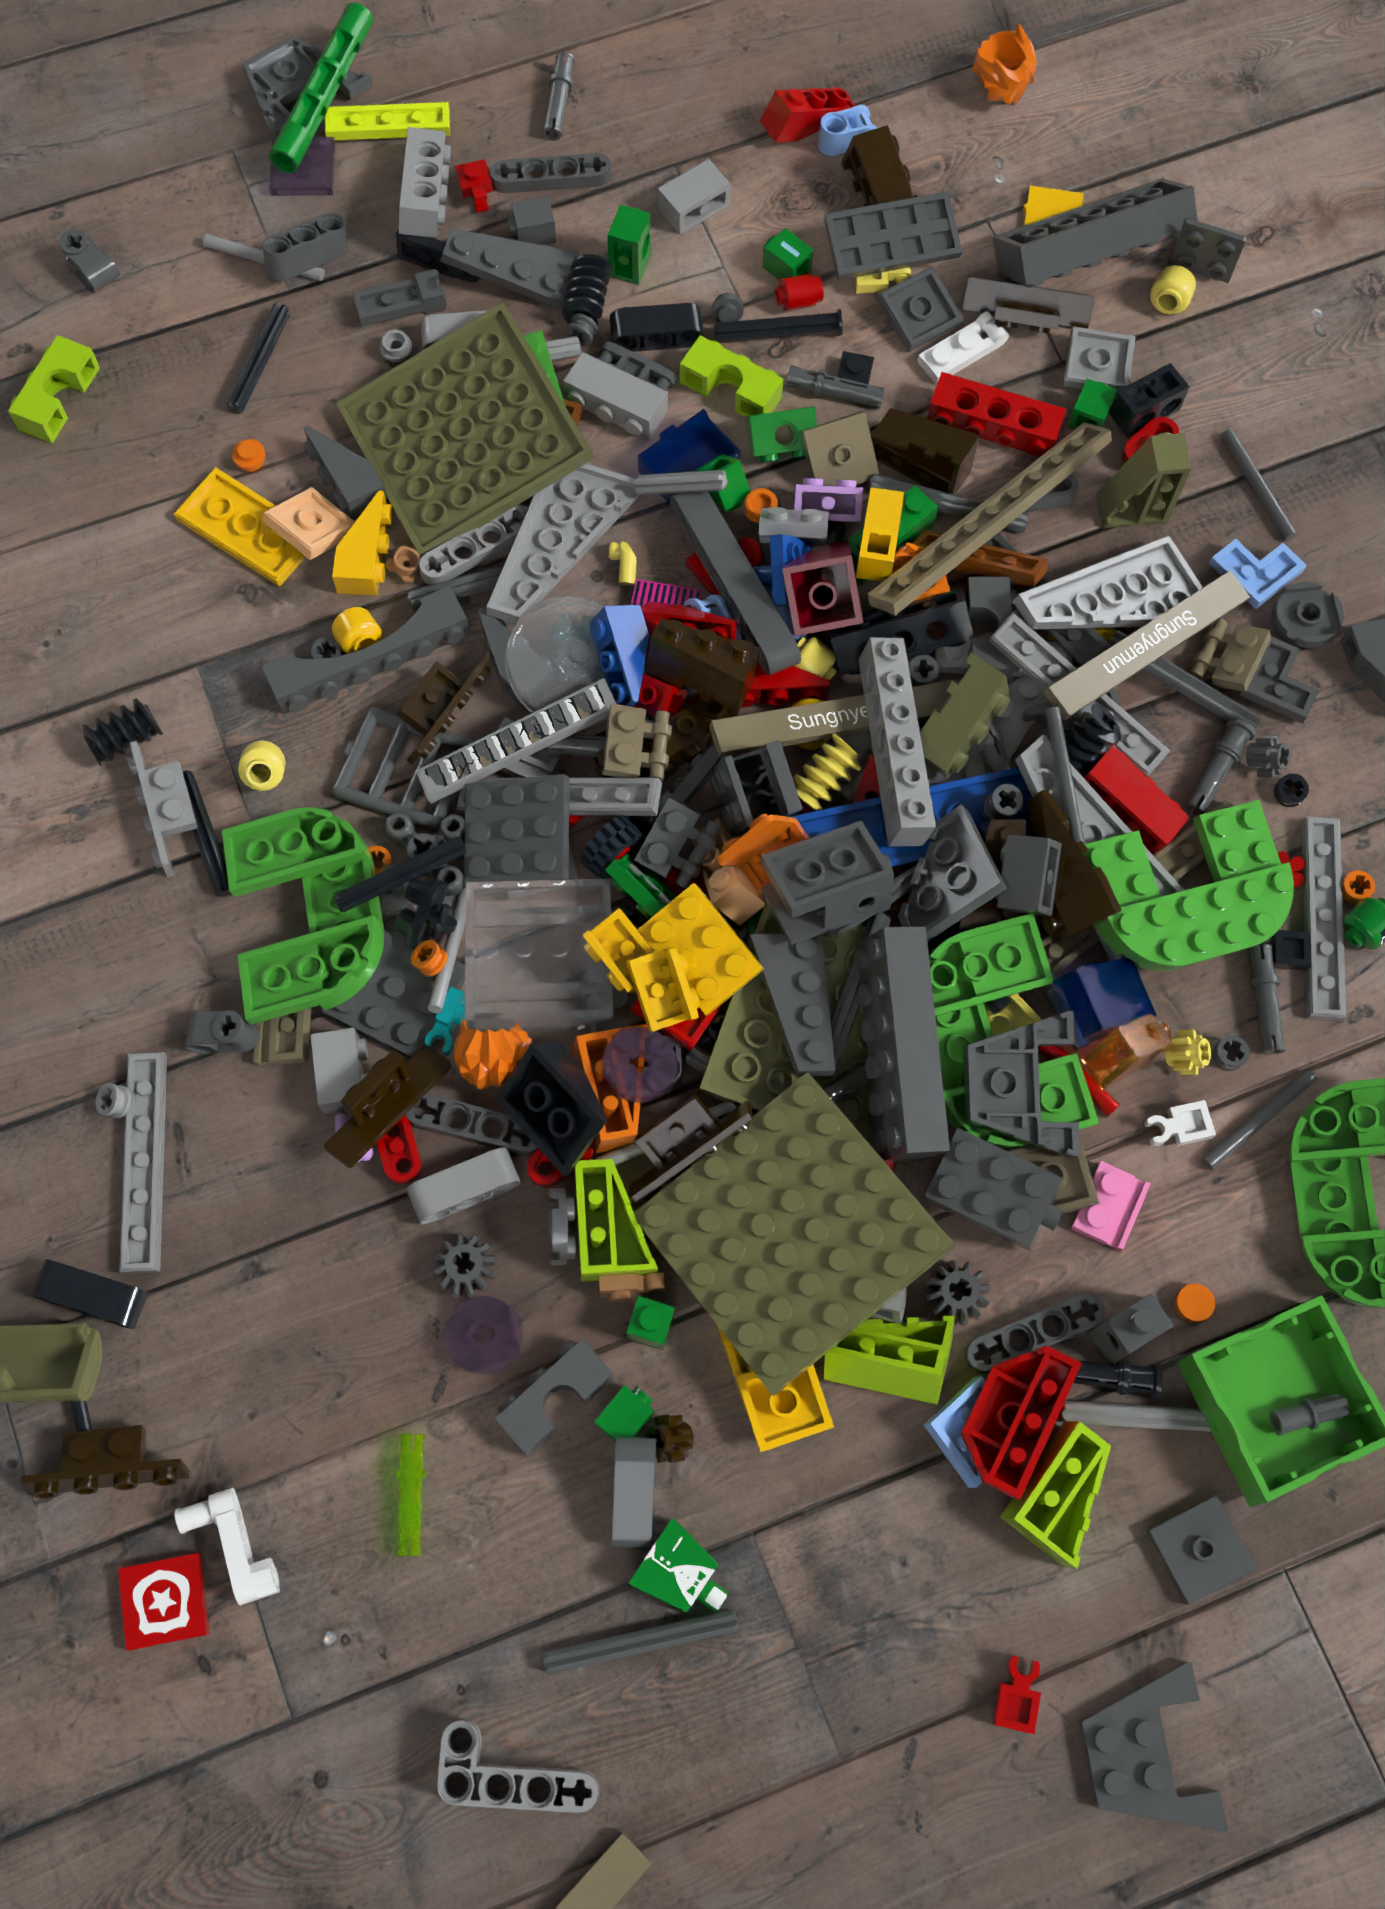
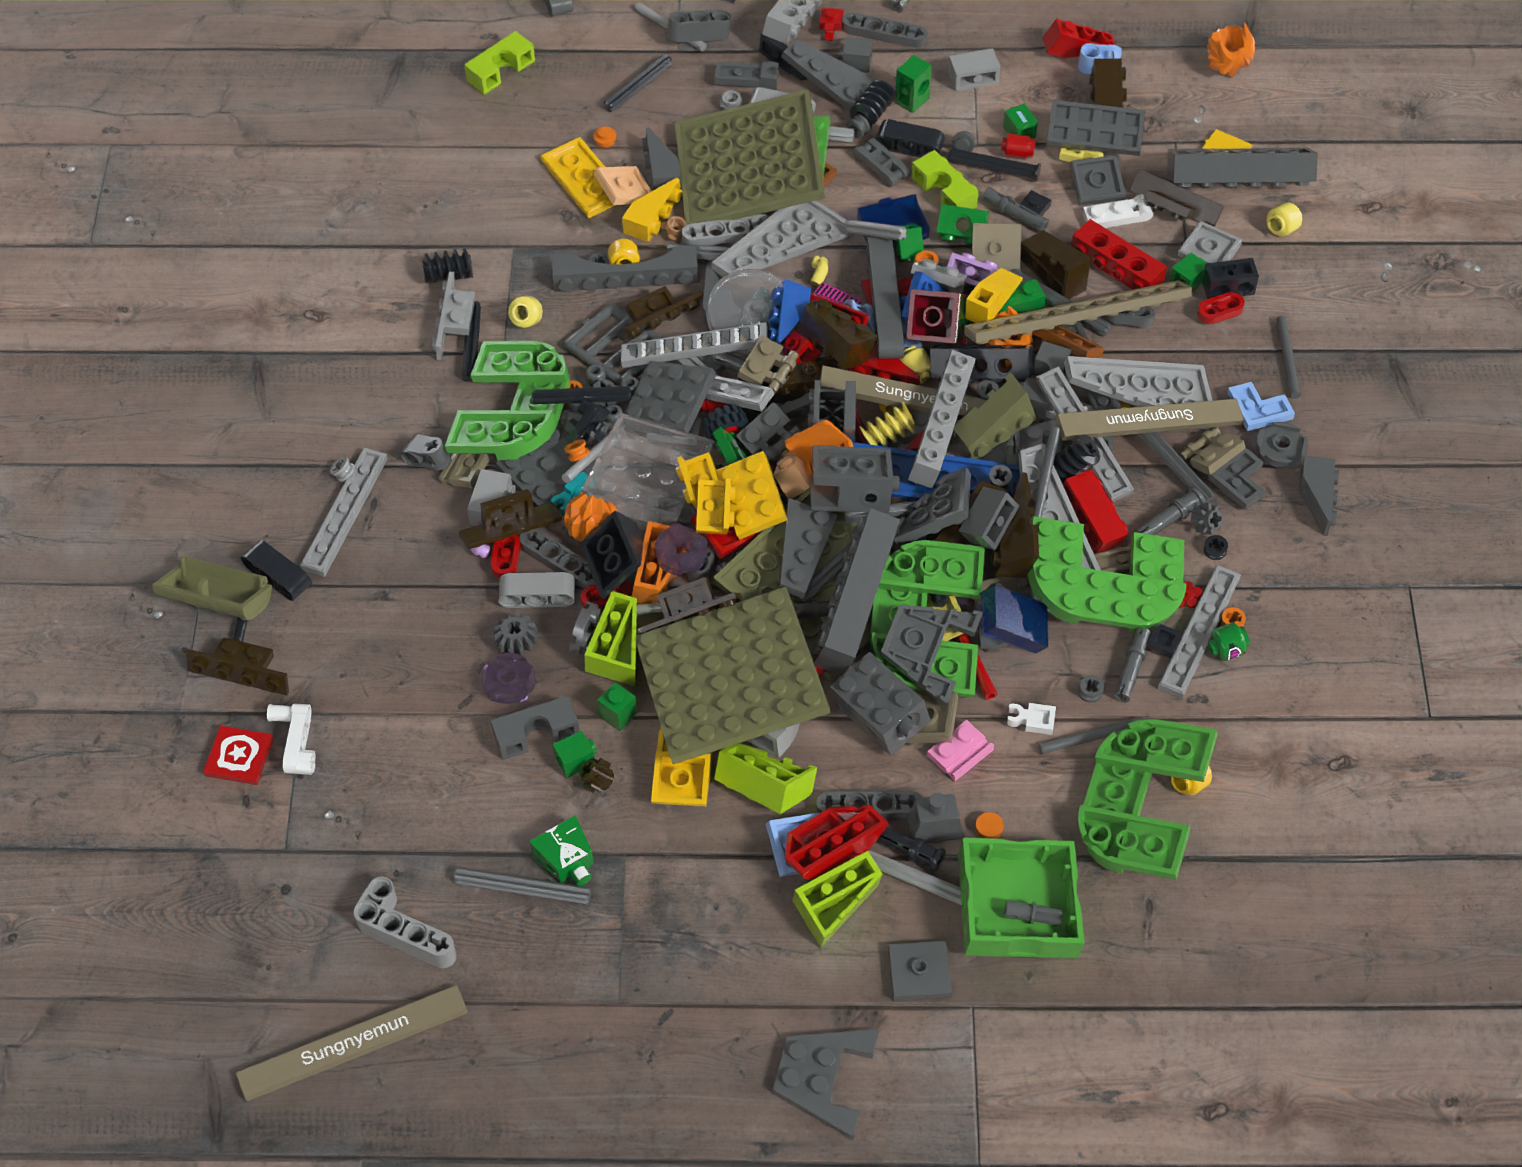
camera: 25 degrees right, 15 degrees down
(410, 1494) = (422, 741): clear neon green pin -> none
(616, 396) = (862, 171): light grey brick -> none
(621, 1287) = (606, 677): medium nougat plate -> none
(633, 1493) = (558, 791): beam -> none
(947, 1281) = (830, 759): dark grey gear -> none
(1015, 1703) = (749, 1009): red plate -> none
(1140, 1038) = (1015, 656): clear orange torso -> none
(1147, 484) = (1198, 326): olive wedge -> none
(1188, 1052) = (1058, 674): light yellow gear -> none
(1207, 250) = (1320, 201): dark grey bracket -> none

